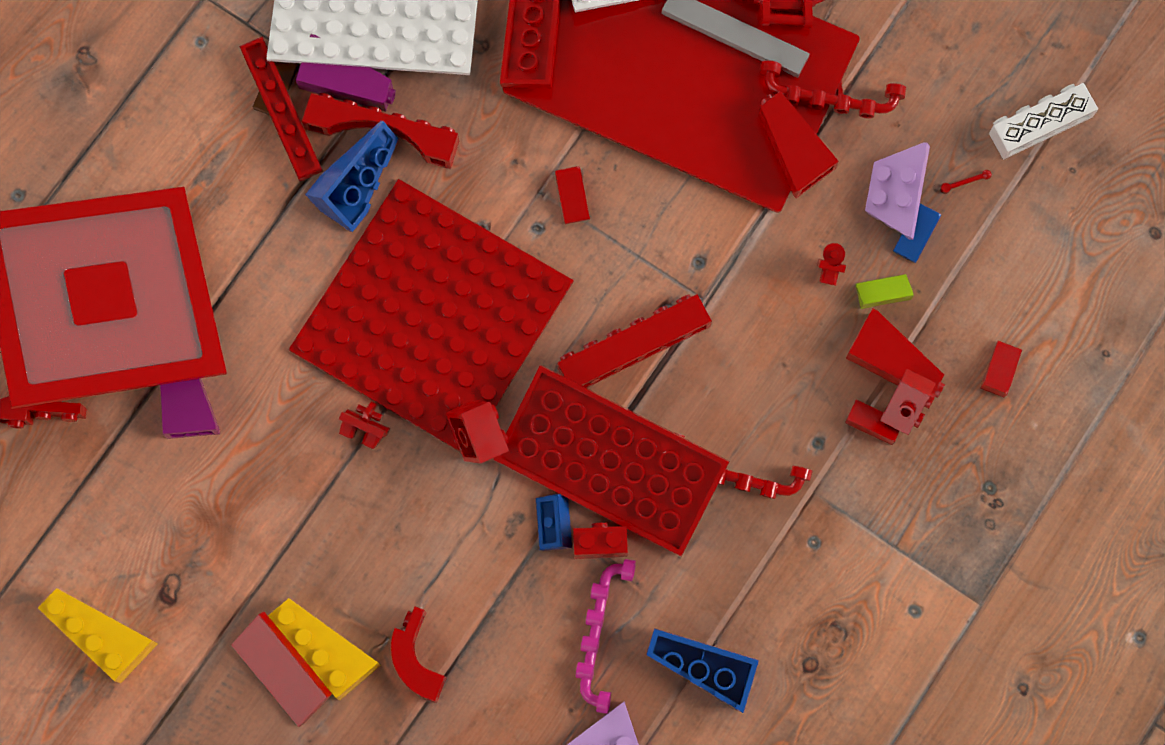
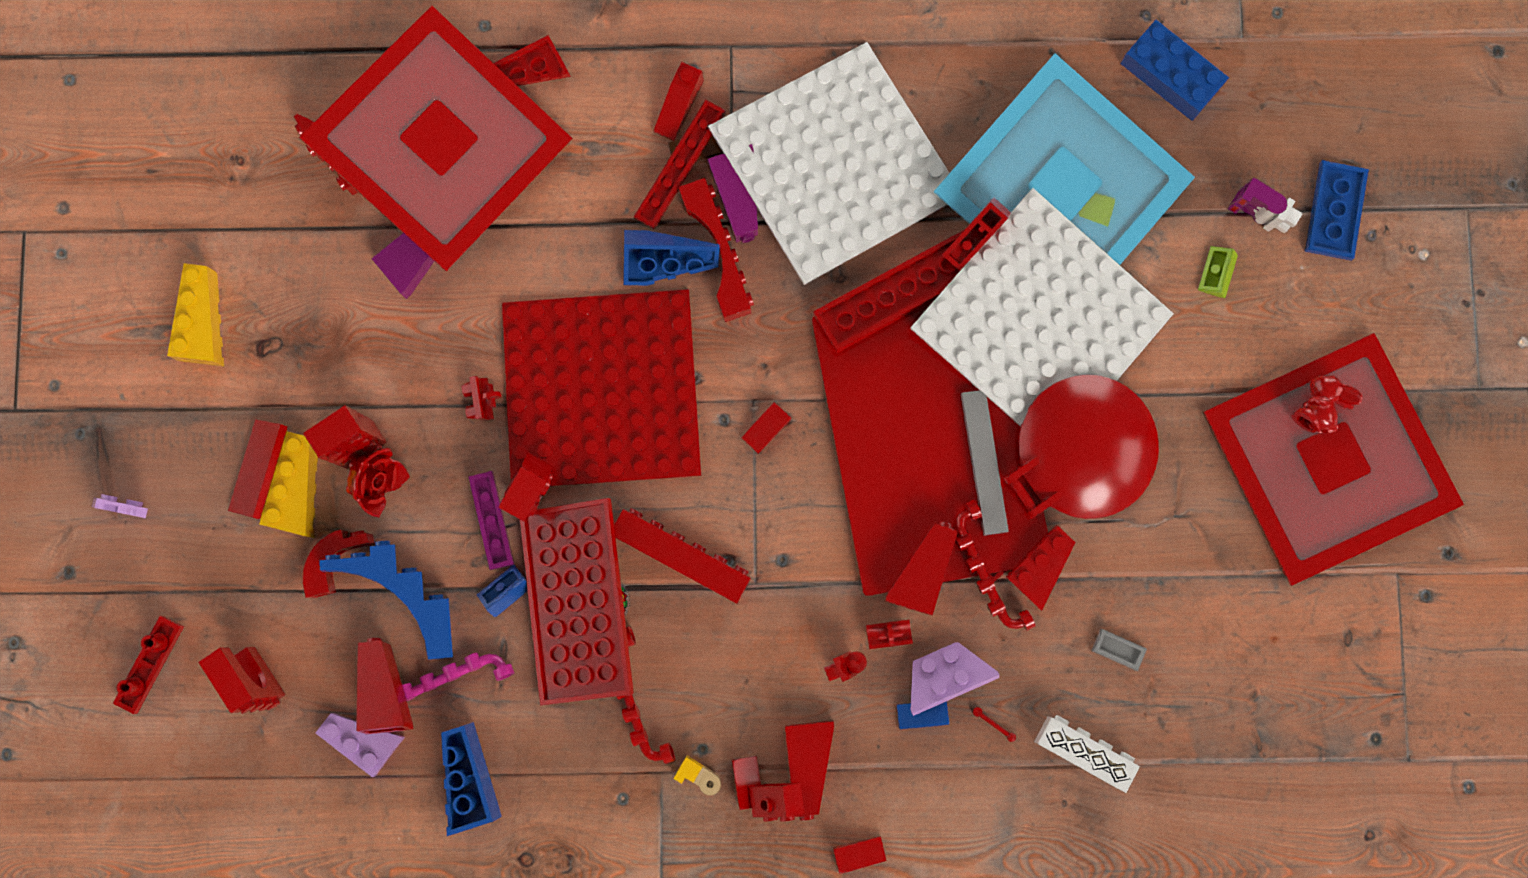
camera: 60 degrees right, 5 degrees up
(90, 170) = (534, 63): none -> red wing
(222, 71) = (679, 100): none -> red slope
(318, 558) = (344, 437): none -> red brick
(367, 565) = (374, 476): none -> red brick
(456, 612) = (381, 567): none -> blue arch
(482, 489) = (491, 520): none -> magenta plate
(575, 691) = (379, 690): none -> red slope
(600, 541) = (509, 636): red brick -> none
(828, 212) = (889, 634): none -> red hips
(845, 455) = (700, 775): none -> leg
(858, 47) = (1042, 566): none -> red wing
(884, 291) = (858, 719): lime slope -> none
(972, 36) = (1119, 649): none -> light grey tile

